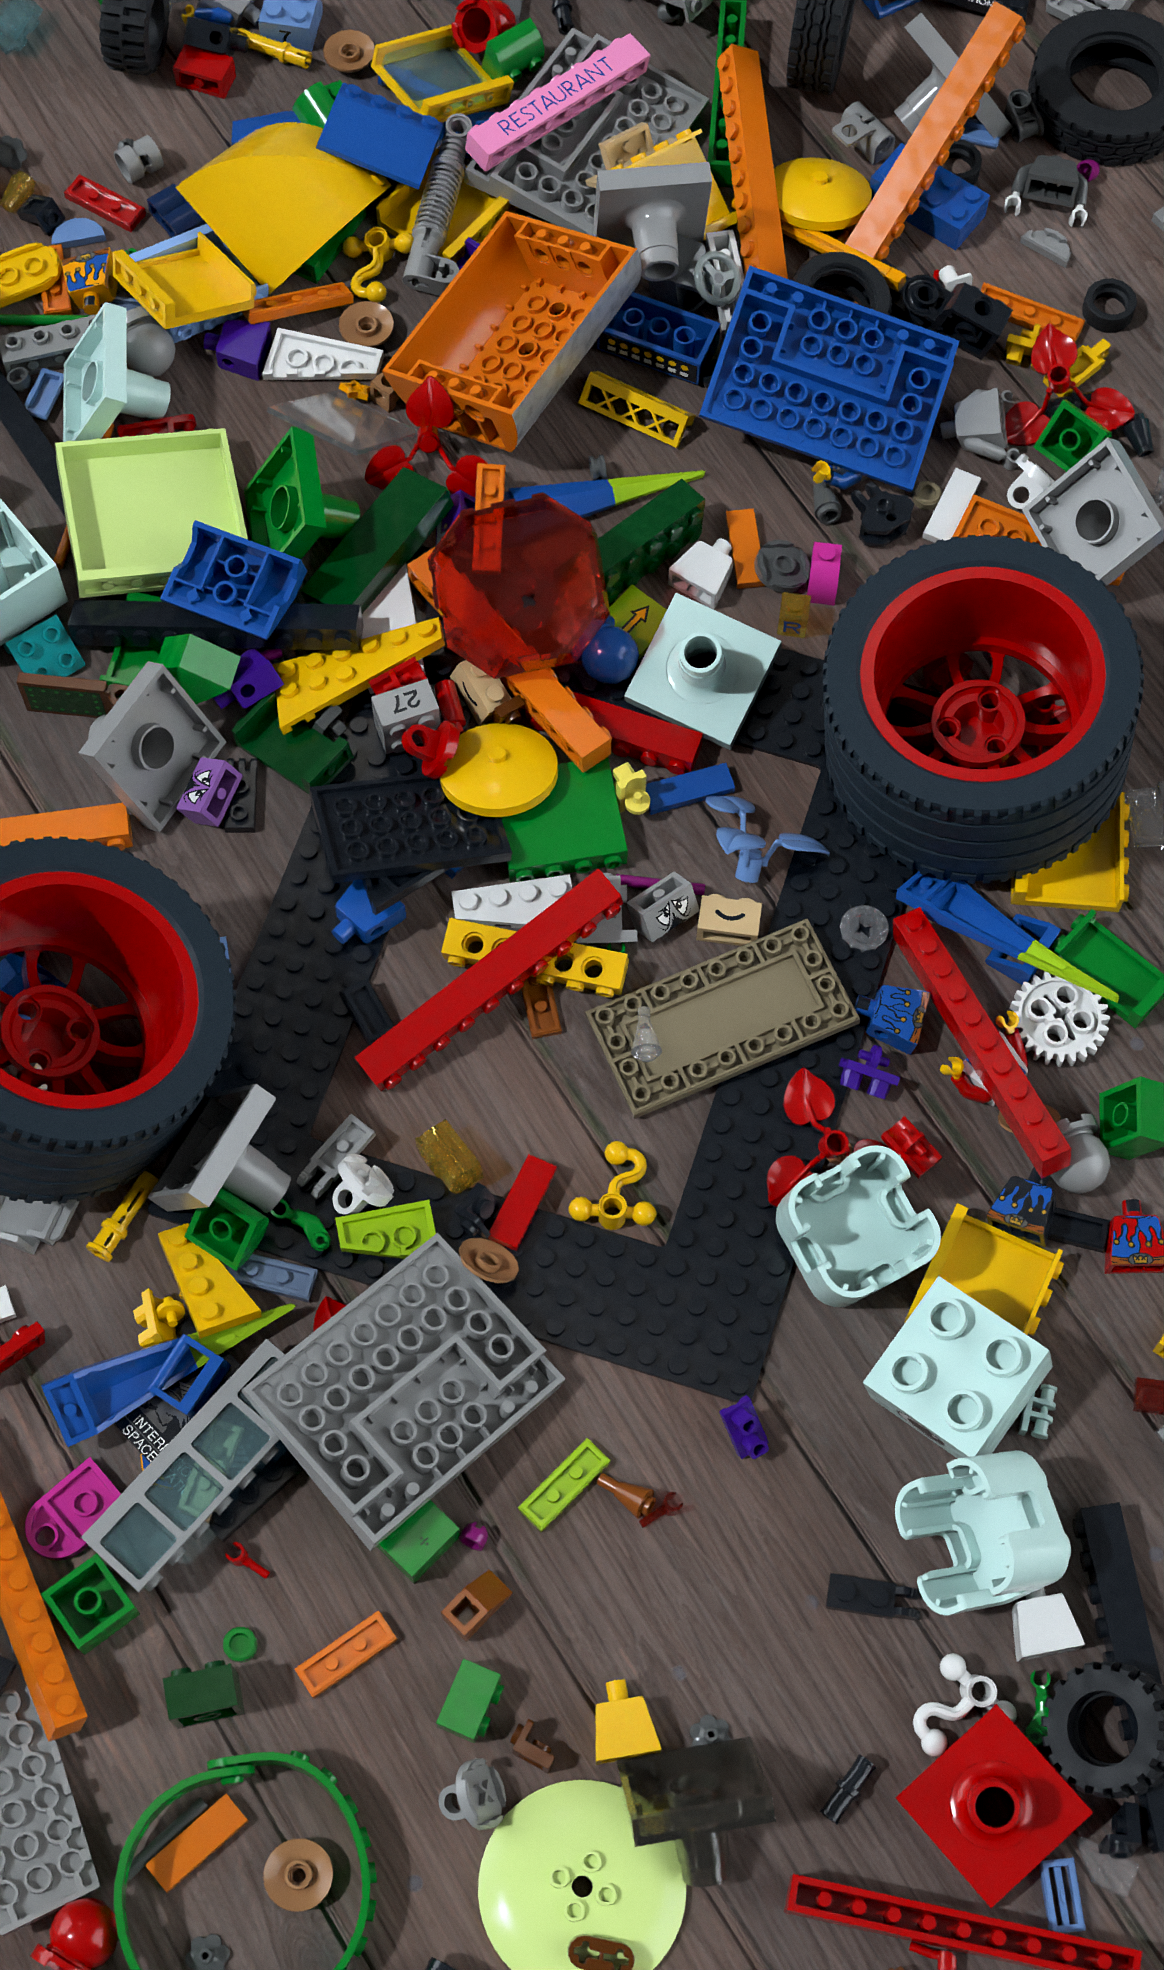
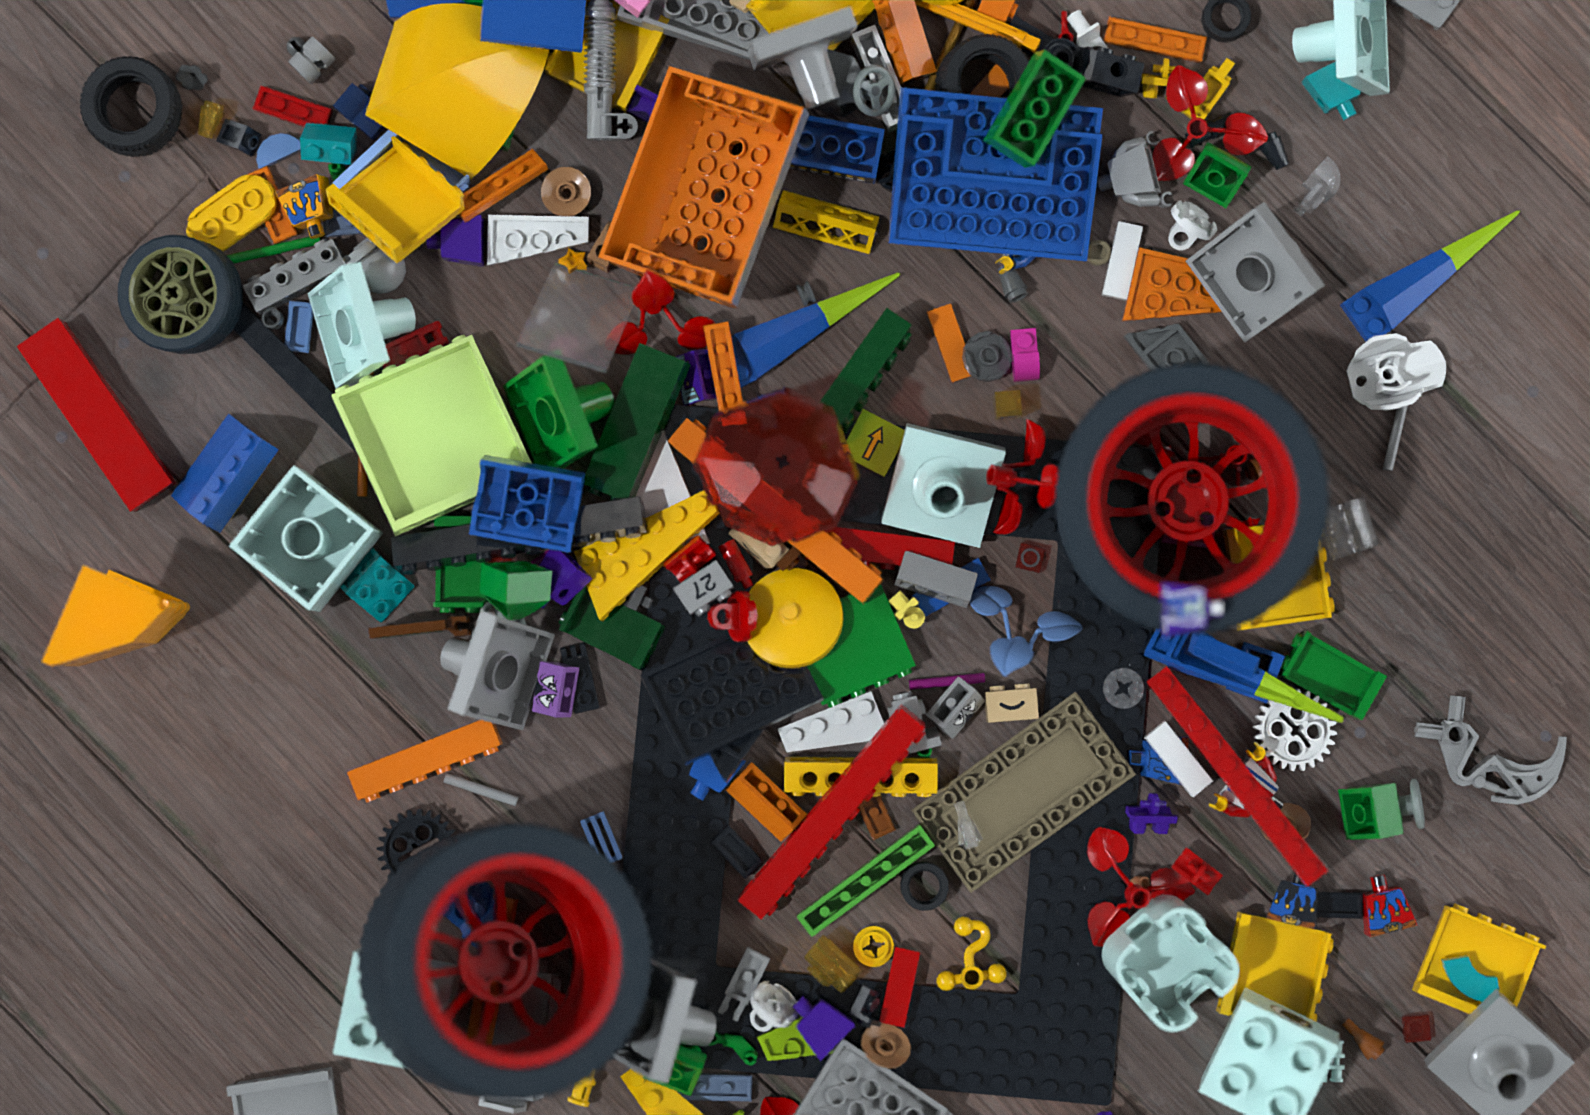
camera: 10 degrees left, 20 degrees up
(129, 230) = (328, 143): none -> teal brick
(381, 250) = (565, 152): yellow piece -> none
(414, 957) = (766, 802): none -> orange brick
(416, 1213) = (821, 1025): none -> dark purple torso
(492, 1143) = (883, 952): none -> yellow gear
(511, 1070) = (865, 880): none -> bright green brick
(581, 1074) = (943, 886): none -> black tyre
(610, 654) = (868, 491): blue tile -> none
(672, 768) = (936, 579): none -> light grey panel
(703, 572) = (921, 377): white torso -> none
(775, 663) = (1004, 477): none -> red plant
(785, 776) = (1030, 558): none -> clear red tile
(882, 515) = (1065, 283): black hinge -> none
(884, 312) = (1034, 109): none -> green brick
(913, 1010) = (1178, 759): none -> white tile
(952, 777) = (1186, 609): none -> torso
(992, 910) = (1226, 655): none -> blue piece
(1088, 1156) = (1333, 850): light grey tile -> none
(1088, 1400) = (1368, 1043): none -> dark orange cone

